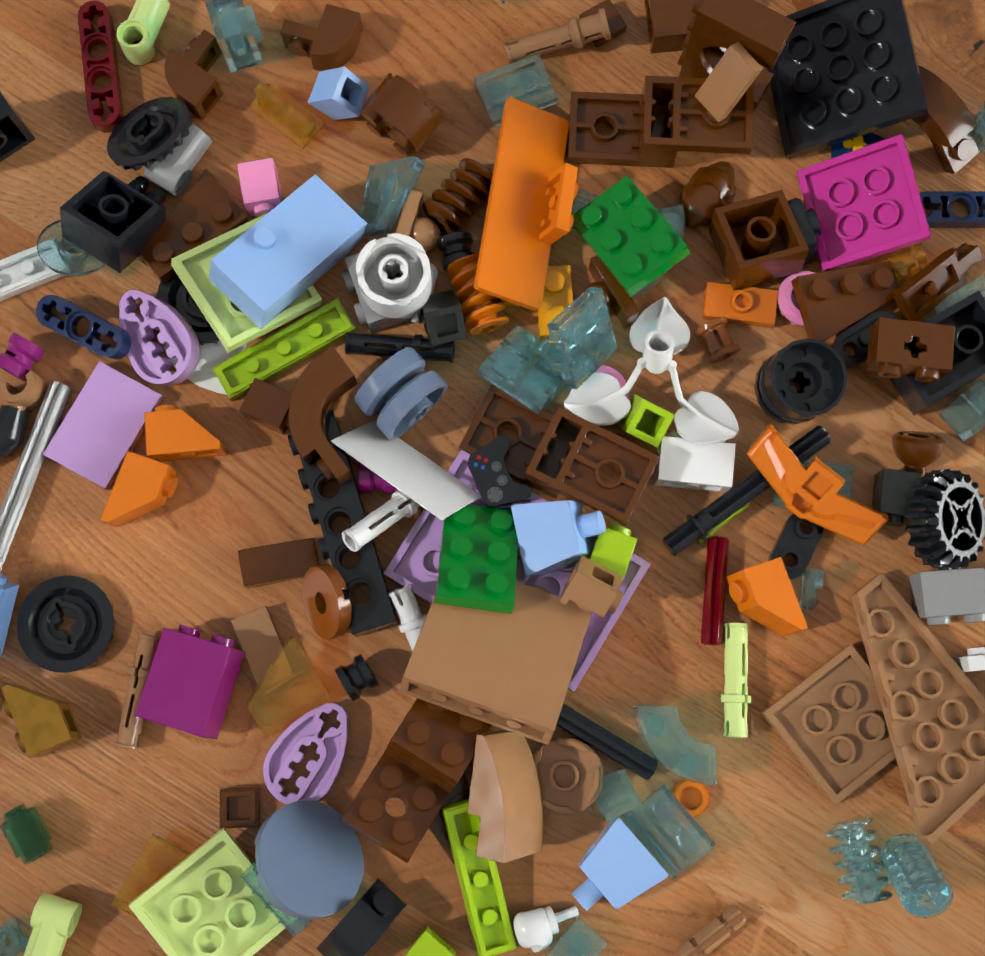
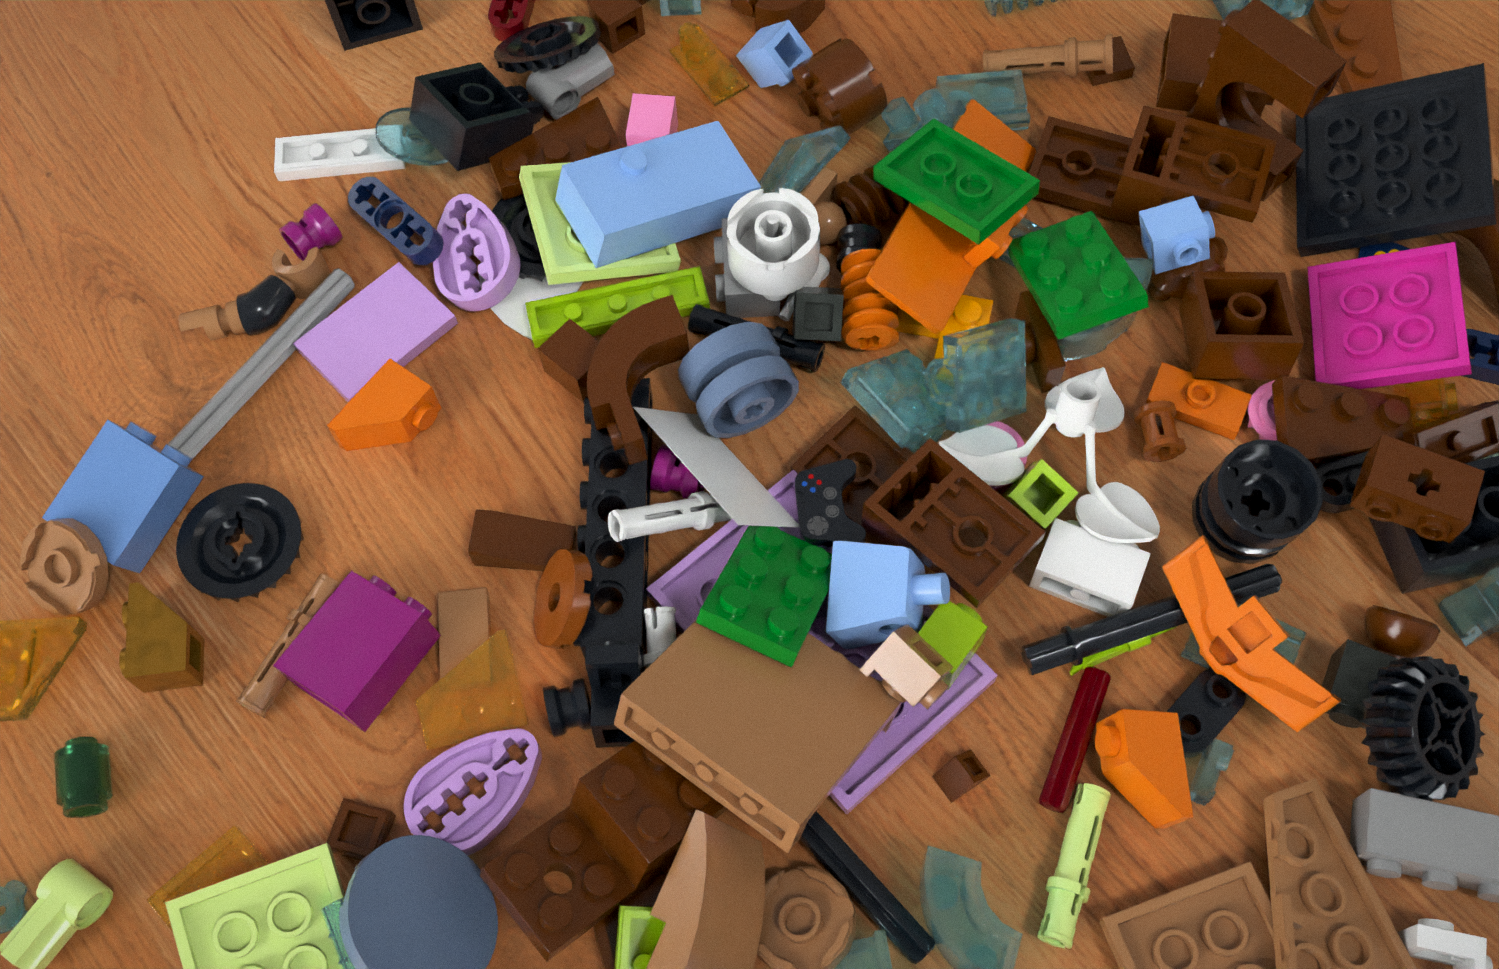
camera: 20 degrees right, 15 degrees down
(177, 436) = (457, 365): orange slope -> none
(388, 657) = (610, 672): none -> black brick
(476, 128) = (905, 122): none -> clear light blue hips
(519, 184) = (956, 180): none -> green plate
(643, 639) = (960, 775): none -> reddish brown piece
(695, 179) = (1176, 234): none -> light blue brick
(728, 81) = (1245, 121): medium nougat tile -> none
(809, 226) = (1312, 328): black piece -> none

